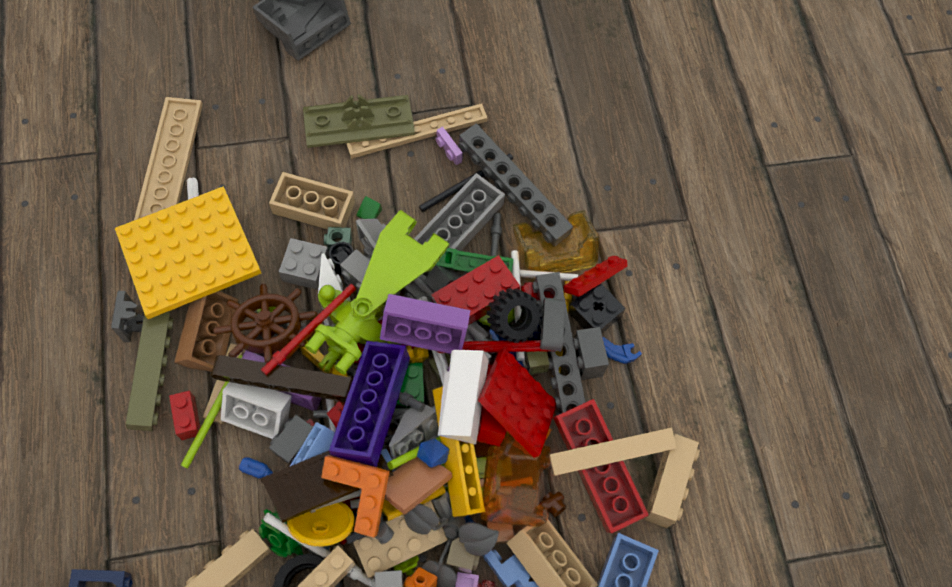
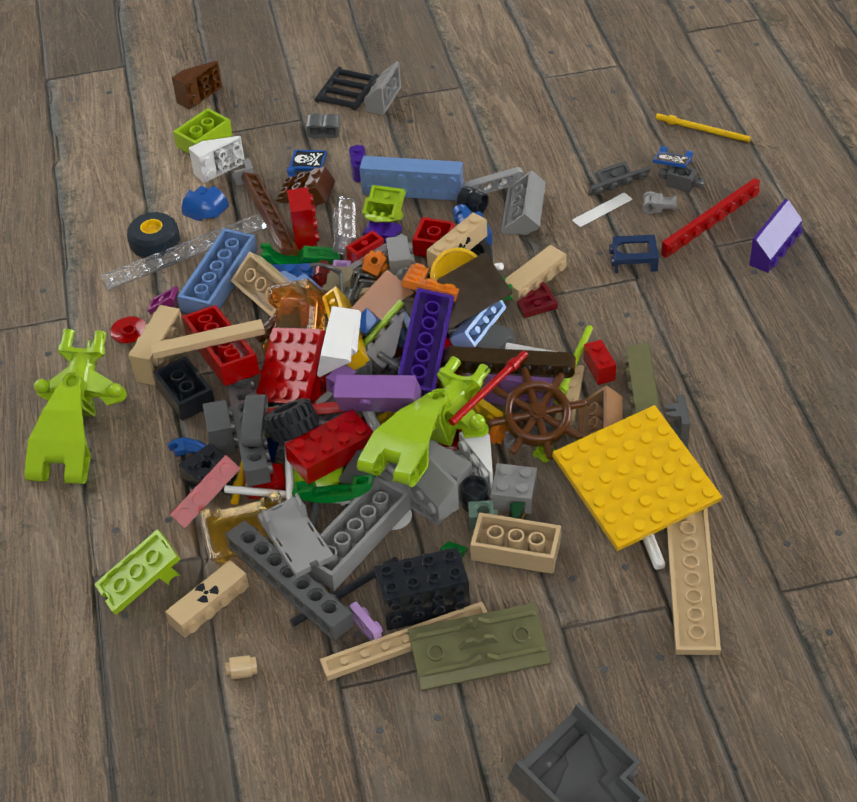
camera: 175 degrees left, 20 degrees down
(232, 522) = (537, 301): none -> dark red wing
(254, 468) = (528, 338): blue piece -> none
(307, 234) = (517, 510): none -> dark green slope
(399, 157) = (421, 588): none -> black brick
(513, 212) = (296, 535): none -> light grey piece
(550, 119) = (241, 667): none -> tan brick
(582, 180) = (207, 599): none -> tan brick
(631, 411) = (183, 387): none -> black brick
(646, 203) = (138, 572): none -> lime piece
(675, 561) = (167, 298): none -> magenta slope
(715, 514) = (127, 329): none -> red dish
(742, 416) = (70, 396): none -> lime piece

